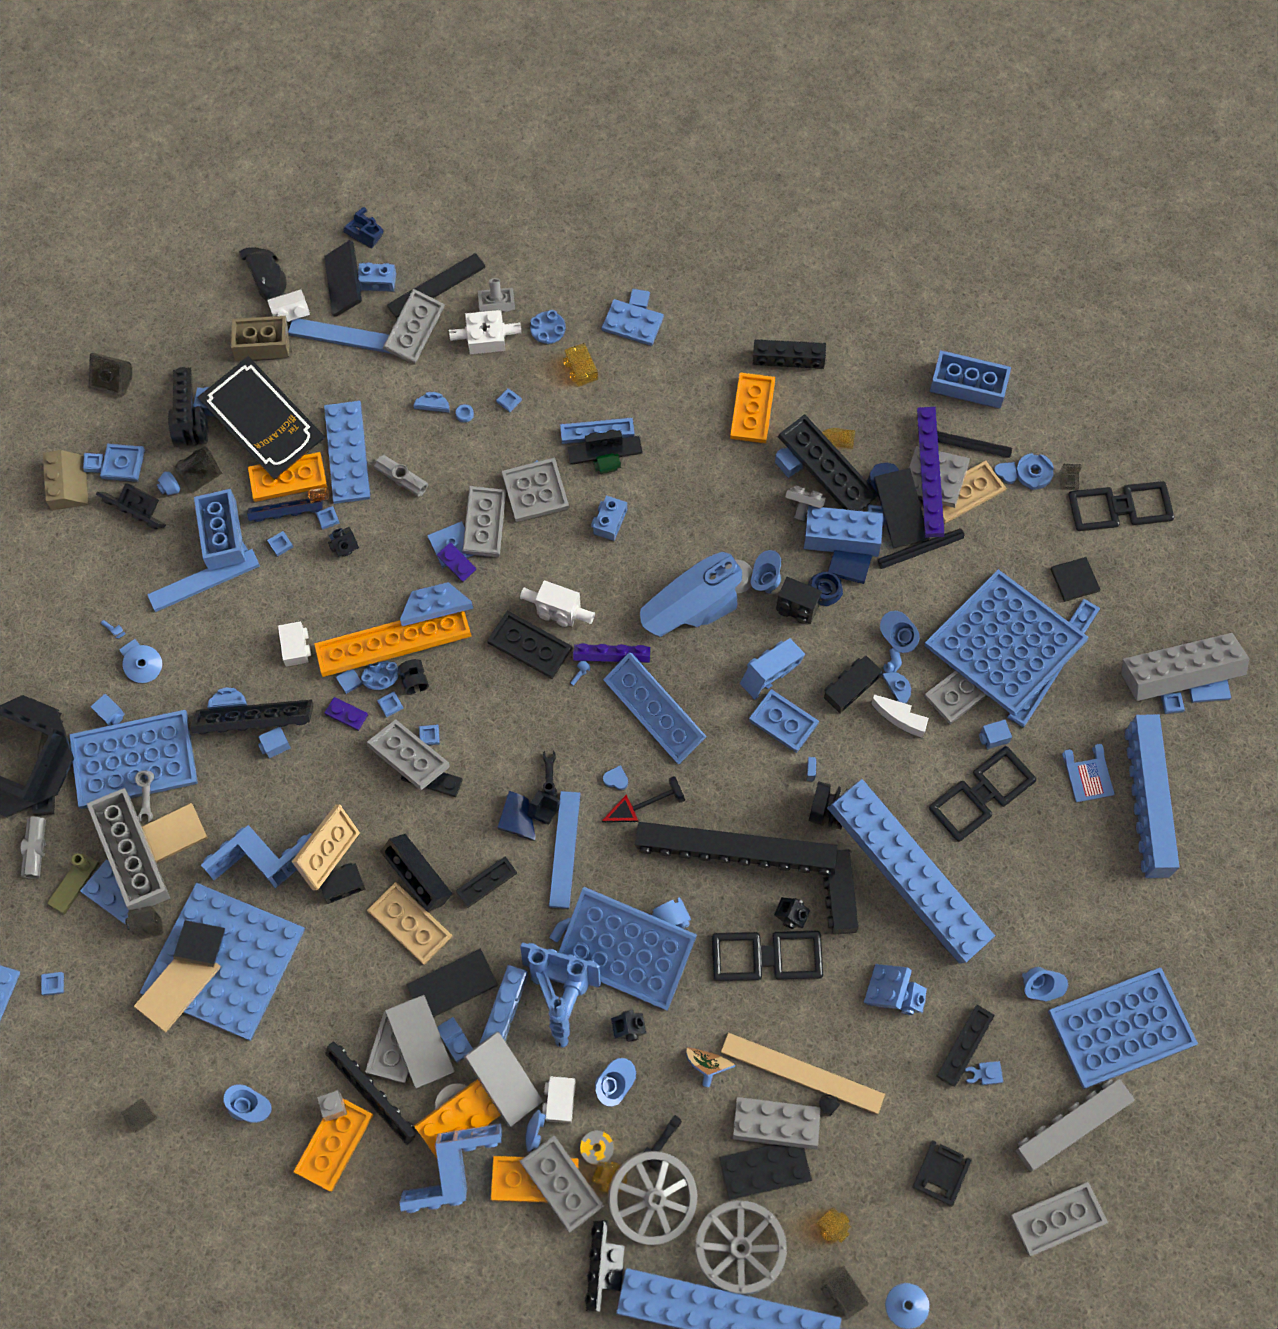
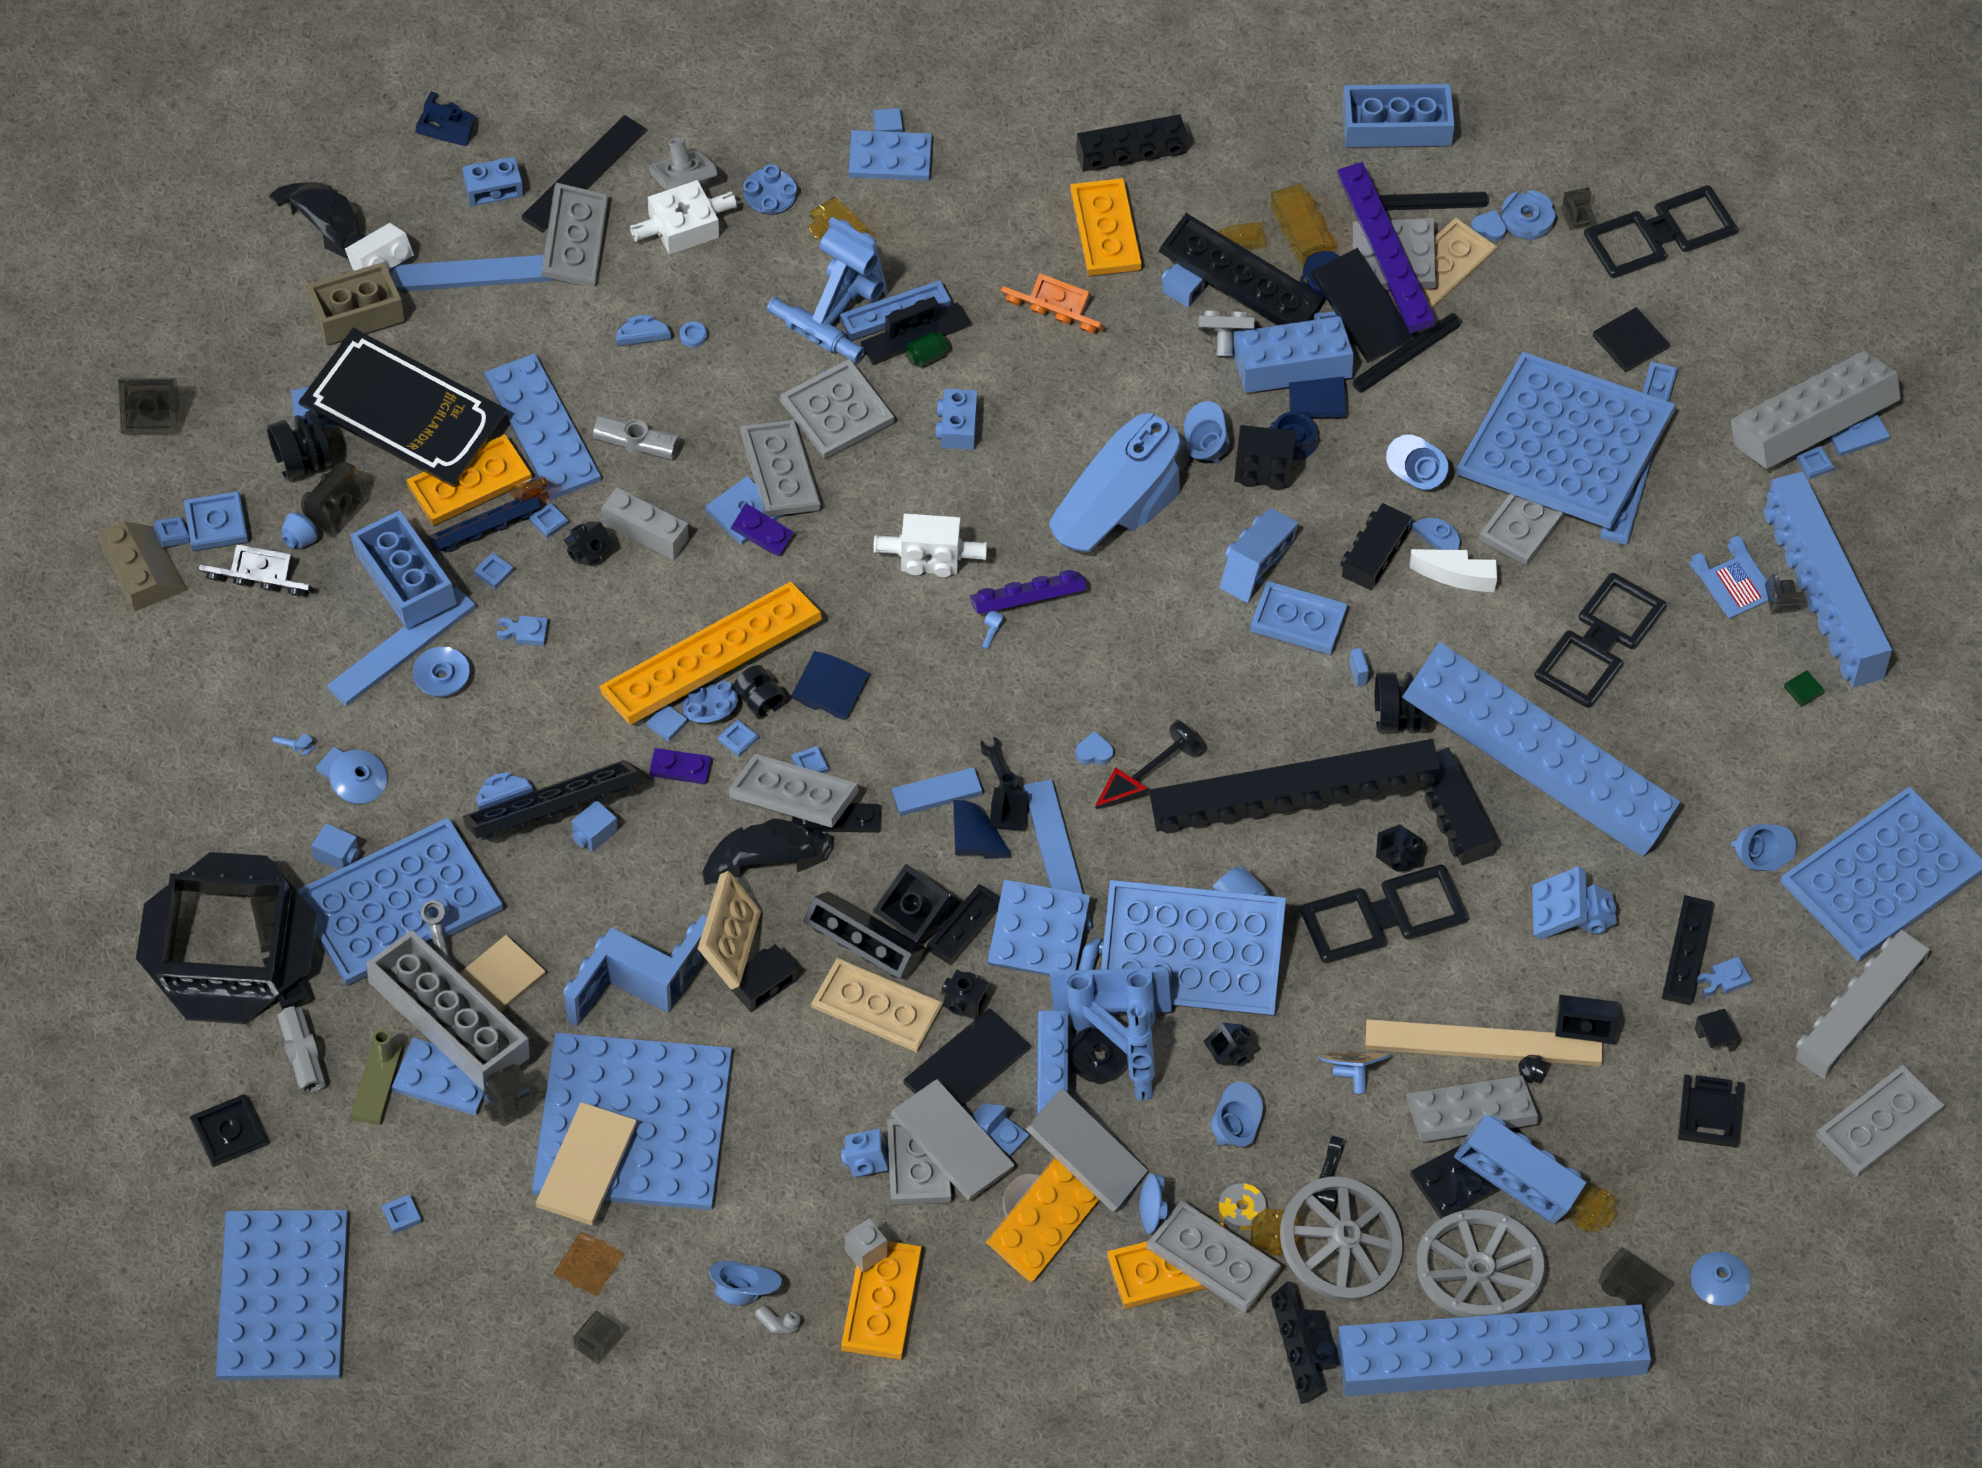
camera: 20 degrees left, 10 degrees down
(157, 1056) = (588, 1263): none -> clear orange piece
(182, 399) = (280, 406): black plate -> none
(199, 943) = (597, 1099): black tile -> none
(216, 598) = (439, 661): none -> medium blue dish
(260, 1140) = (778, 1325): none -> light grey arm
(285, 591) = (527, 630): none -> medium blue plate
(294, 643) = (570, 694): white brick -> none
(343, 278) = (444, 194): black tile -> none
(360, 1033) = (865, 1153): none -> medium blue brick
(366, 1088) = (908, 1223): black plate -> none
(378, 789) = (767, 843): none -> black animal
(384, 537) = (645, 523): none -> light grey brick
(434, 603) = (753, 589): medium blue wing -> none
(451, 1168) = (1060, 1271): medium blue bracket -> none
(458, 860) = (915, 905): none -> black slope
(461, 683) = (829, 684): none -> dark blue slope
(470, 940) = (965, 994): none -> black brick
(503, 779) = (936, 791): none -> medium blue tile
(509, 400) = (750, 301): medium blue tile -> none
(528, 1006) = (1095, 1069): none -> black plate
(529, 644) = (907, 610): black plate -> none
(532, 901) = (1038, 928): none -> medium blue plate
(560, 1100) = (1171, 1158): white brick -> none
(572, 401) = (851, 273): none -> medium blue plate
(654, 708) = (1115, 644): medium blue plate -> none
(703, 450) = (1057, 298): none -> orange bracket
(792, 1190) = (1520, 1168): none -> medium blue brick
(877, 1080) = (1586, 1019): none -> black brick
(881, 438) = (1300, 222): none -> clear yellow brick
(895, 662) = (1424, 504): medium blue arm -> none
(965, 1116) = (1717, 1029): none -> black panel
(995, 734) = (1592, 560): medium blue brick -> none
(1111, 869) = (1804, 688): none -> dark green tile
(1118, 797) = (1782, 595): none -> clear smoke panel

